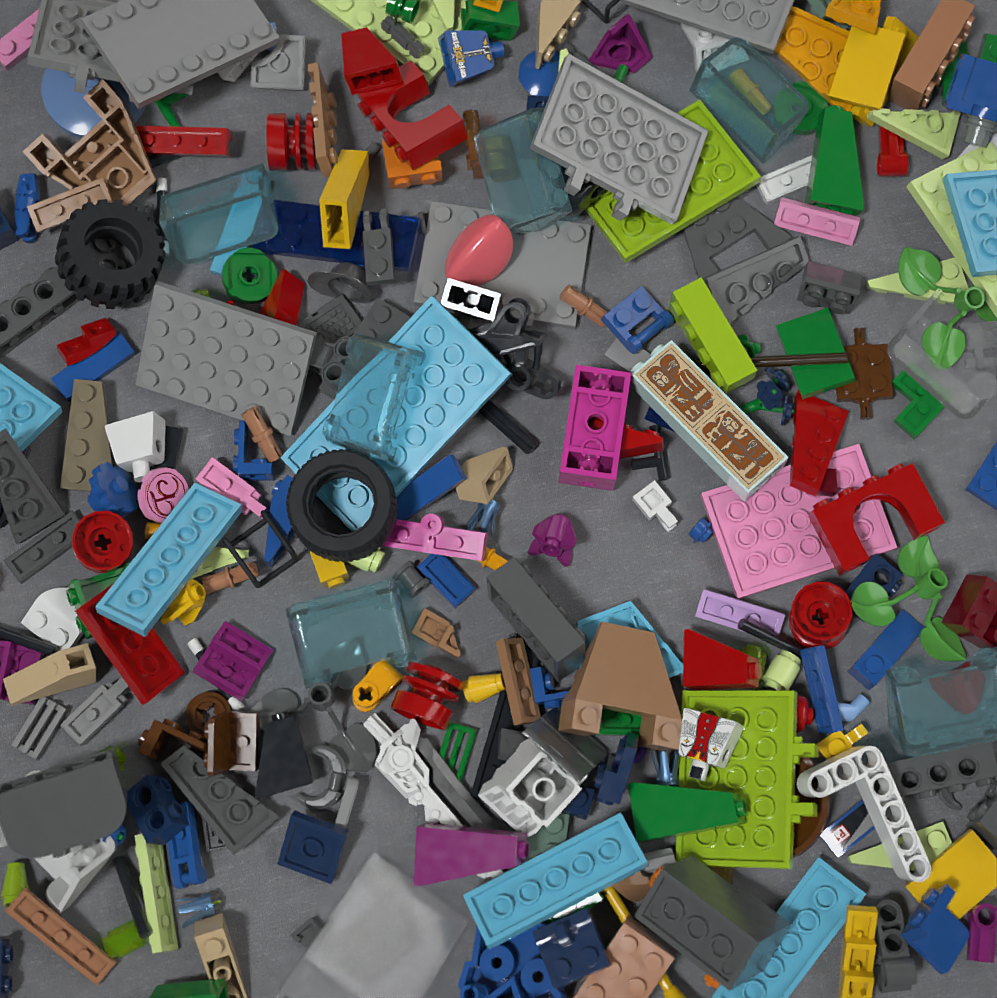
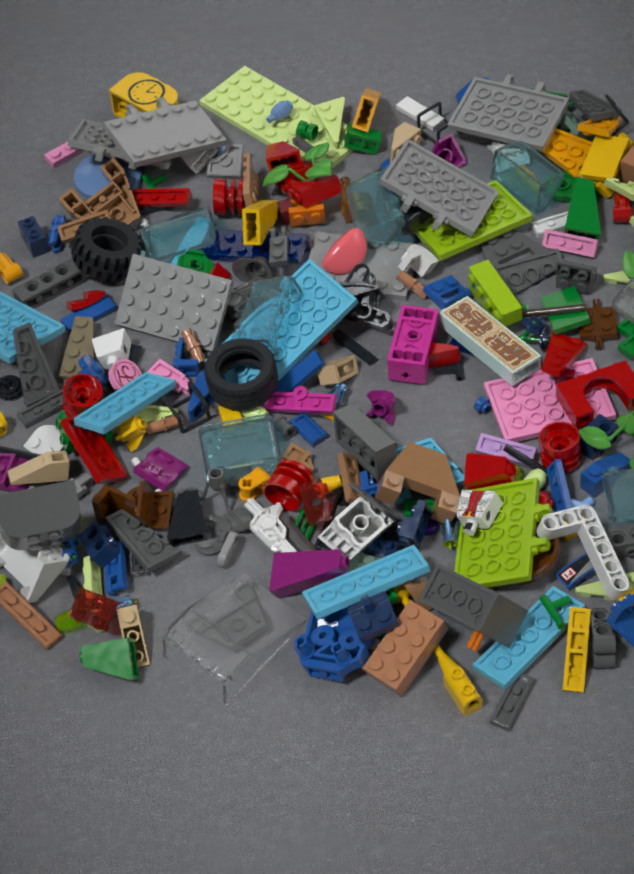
camera: 10 degrees right, 25 degrees down
(179, 942) = (87, 601): none -> clear red brick
(312, 847) = (202, 569): dark blue hinge -> none
(380, 161) = (284, 206): none -> dark red slope
(427, 108) = (319, 169): none -> bright green plant
(468, 54) = (347, 156): blue torso -> none
(469, 733) = (309, 491): none -> clear red brick
(471, 299) = (335, 264): slope -> none
(592, 262) = (419, 260): none -> white brick
(654, 503) = (453, 389): white plate -> none
(677, 811) = (460, 549): green slope -> none
(818, 902) = (552, 606): none -> green piece

